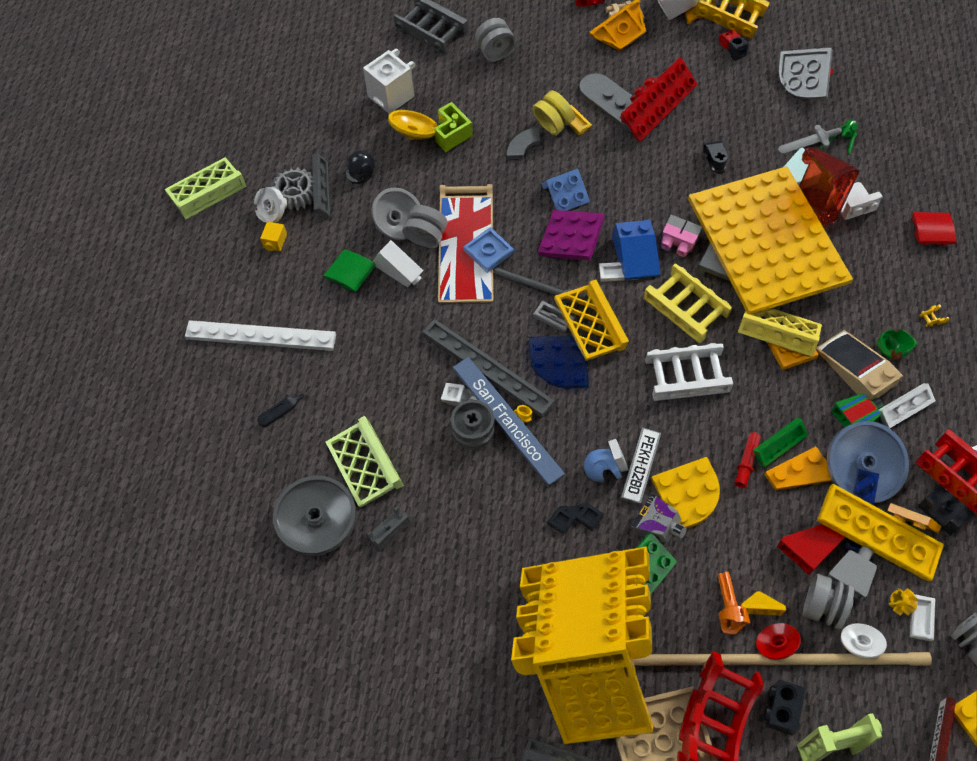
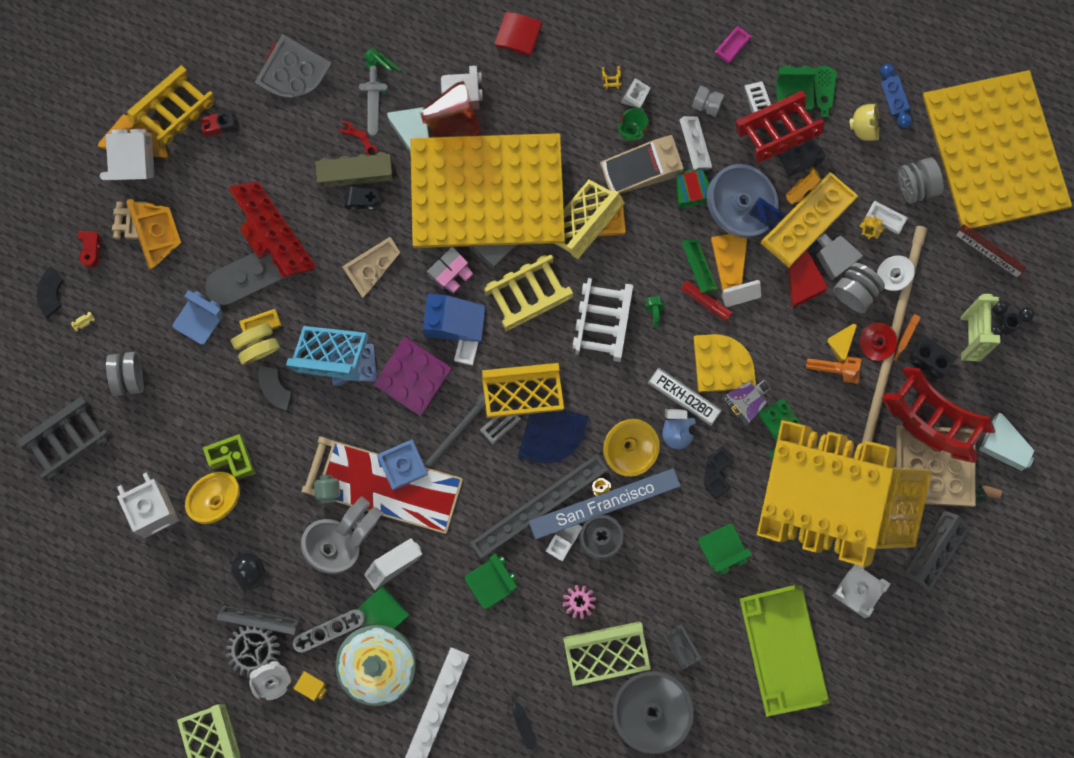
camera: 75 degrees left, 15 degrees up
(304, 278) = (375, 665): none -> dish
(324, 236) = (327, 627): none -> light grey beam
(404, 347) = (491, 582): none -> green bracket
(410, 630) = (784, 650): none -> lime slope
(413, 424) = (572, 603): none -> bright pink gear
(446, 198) = (327, 489): none -> sand green head
(497, 542) = (724, 549): none -> green bracket
(497, 692) = (860, 590): none -> white panel
(529, 9) = (83, 321): none -> light yellow piece
(554, 165) = (325, 366): none -> medium azure fence
(557, 425) = (639, 454): none -> yellow dish
(562, 77) = (198, 318): none -> medium blue bracket
(659, 179) = (371, 265): none -> tan wing
(720, 414) = (654, 305): none -> green piece
(739, 143) = (354, 170): none -> olive brick
(770, 490) = (741, 293): none -> white slope
(773, 143) = (359, 134): none -> red piece
(799, 673) = (907, 335): none -> orange piece
(929, 337) = (636, 94): none -> white slope
(956, 403) = (709, 101): none -> light grey wheel

